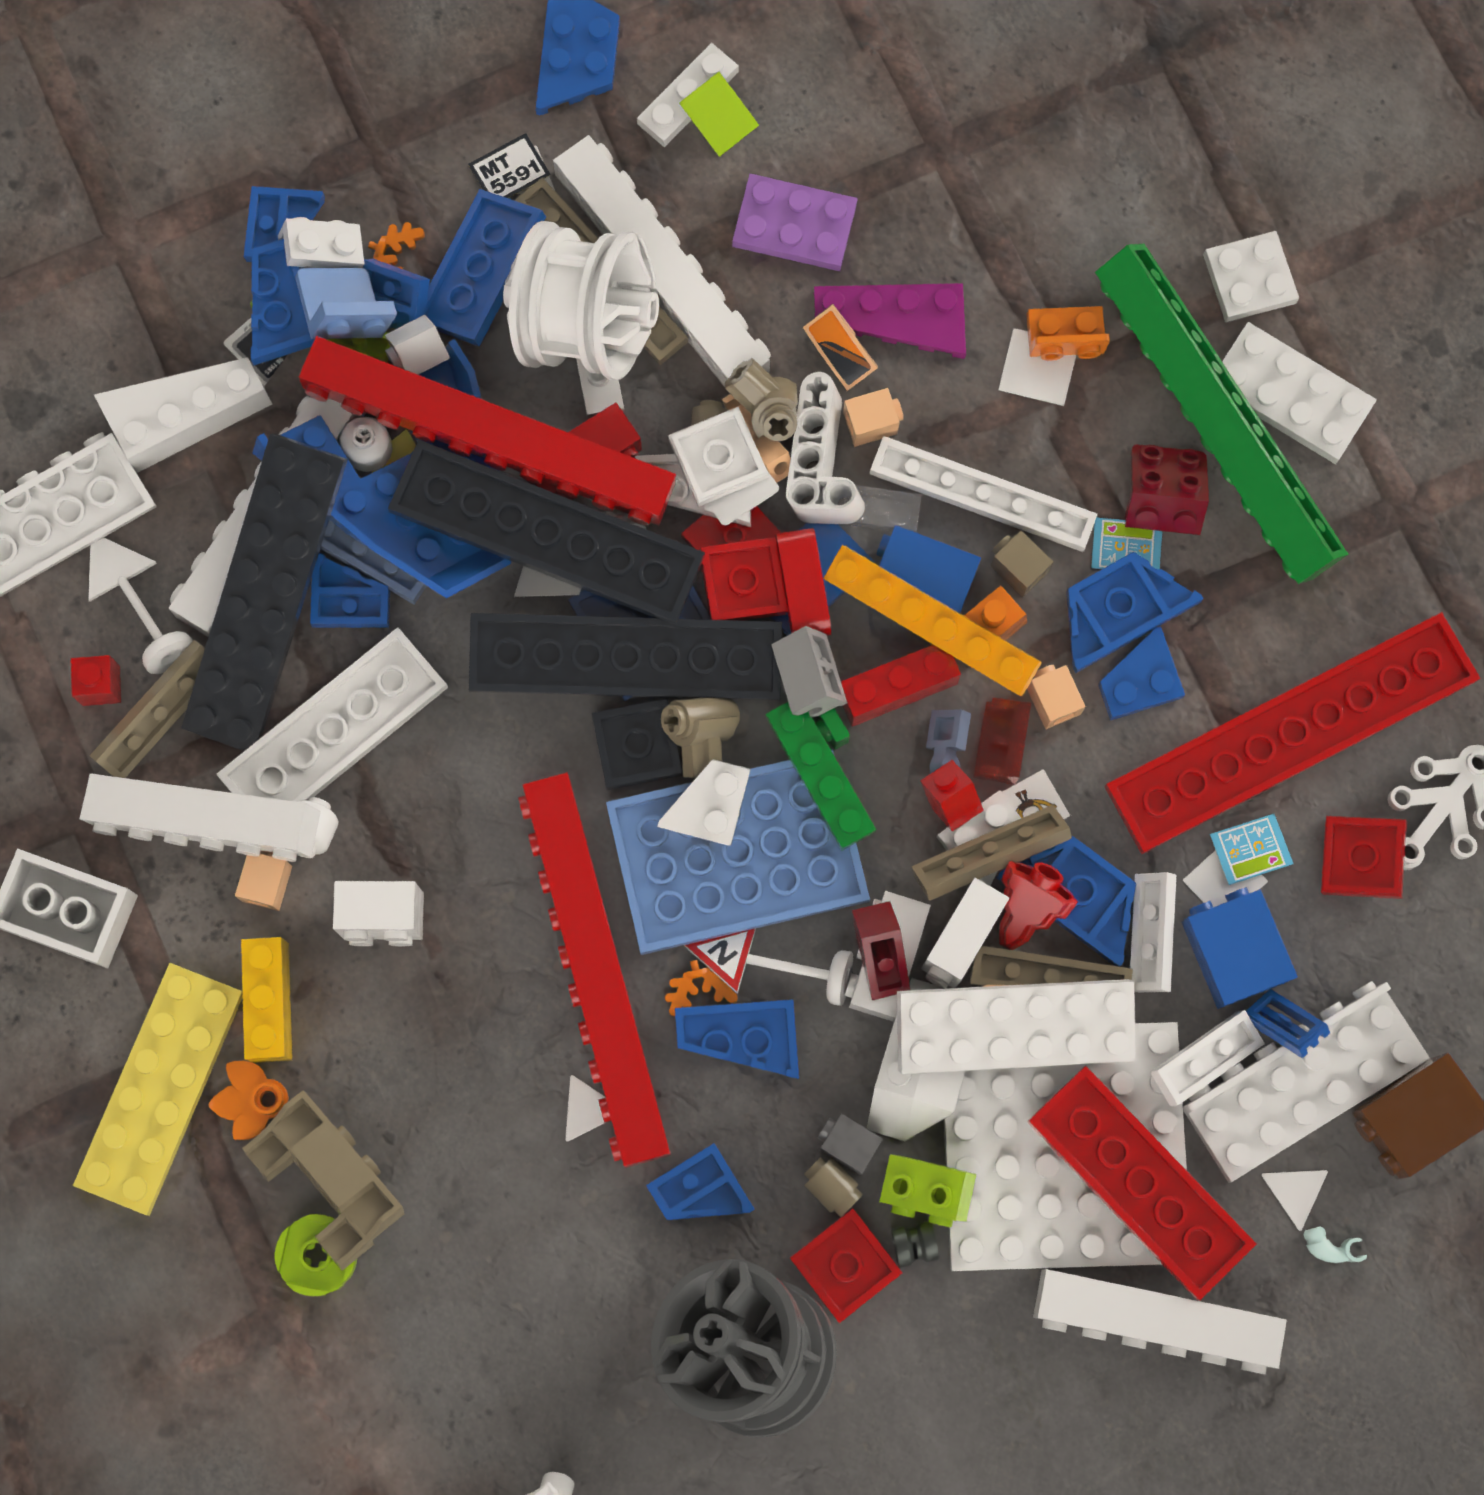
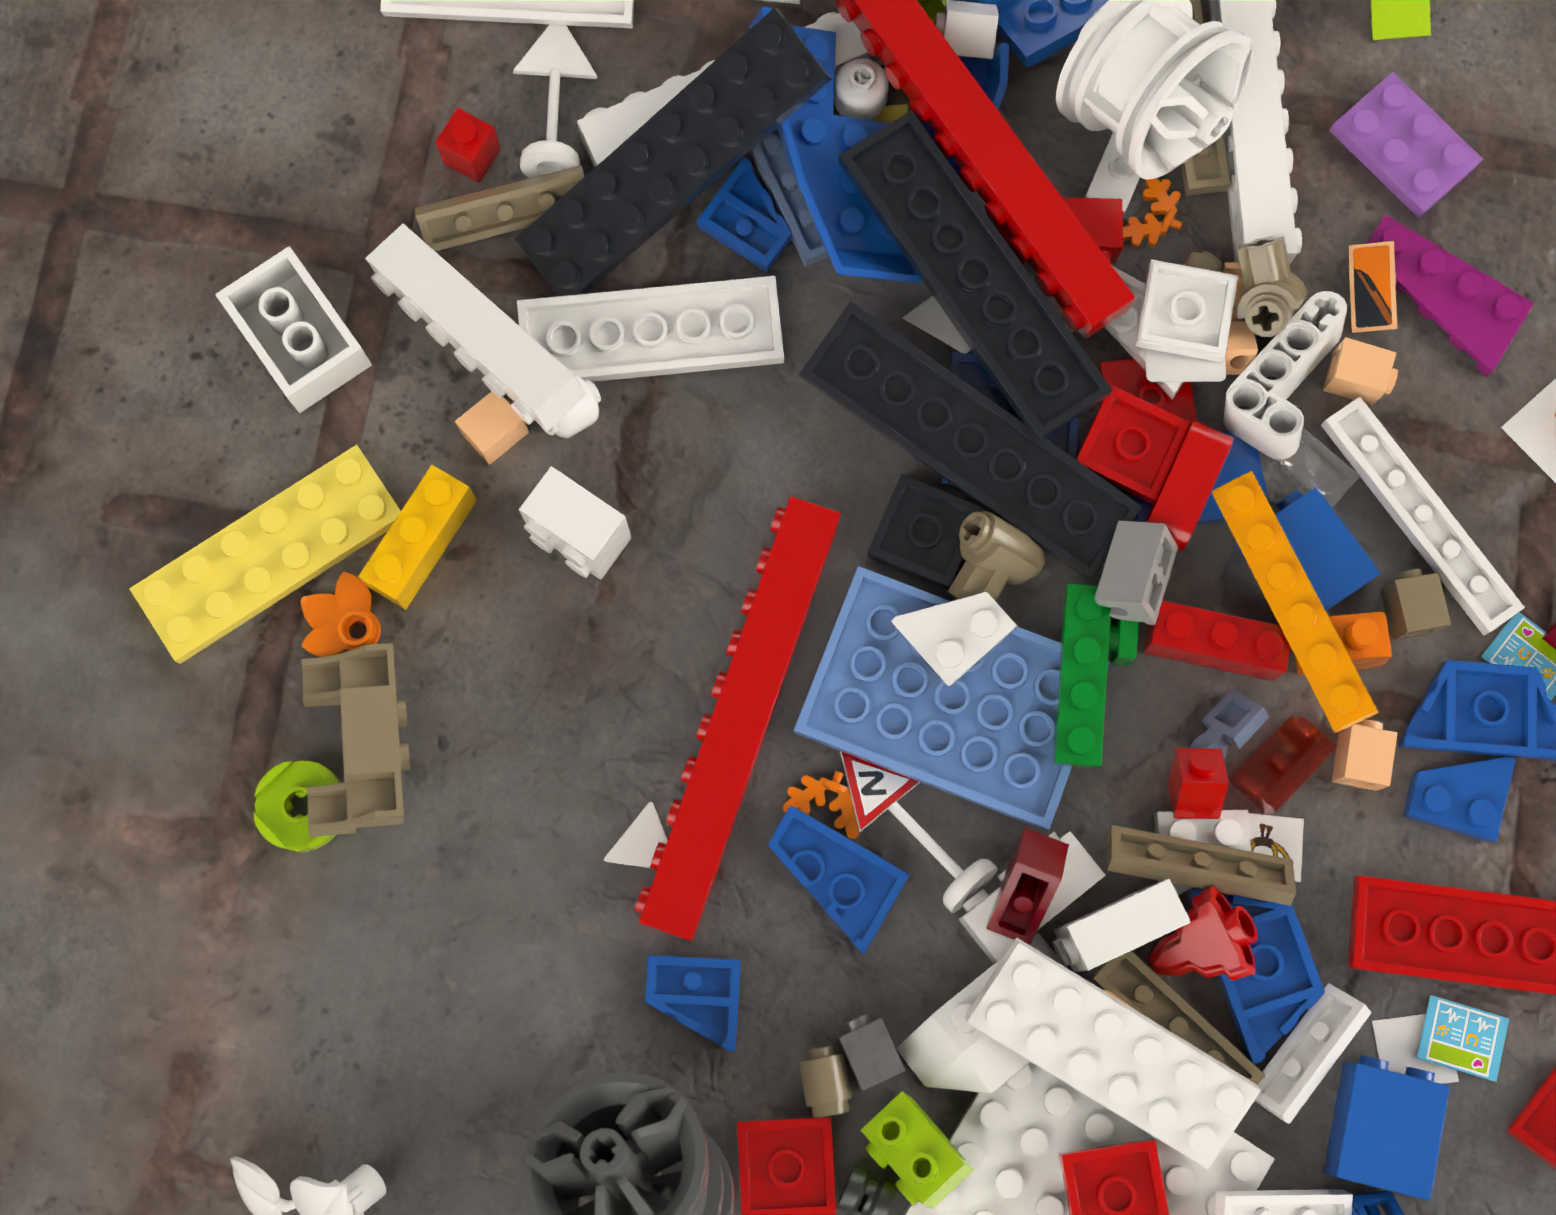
camera: 35 degrees right, 0 degrees up
(652, 407) = (1152, 228): none -> orange animal

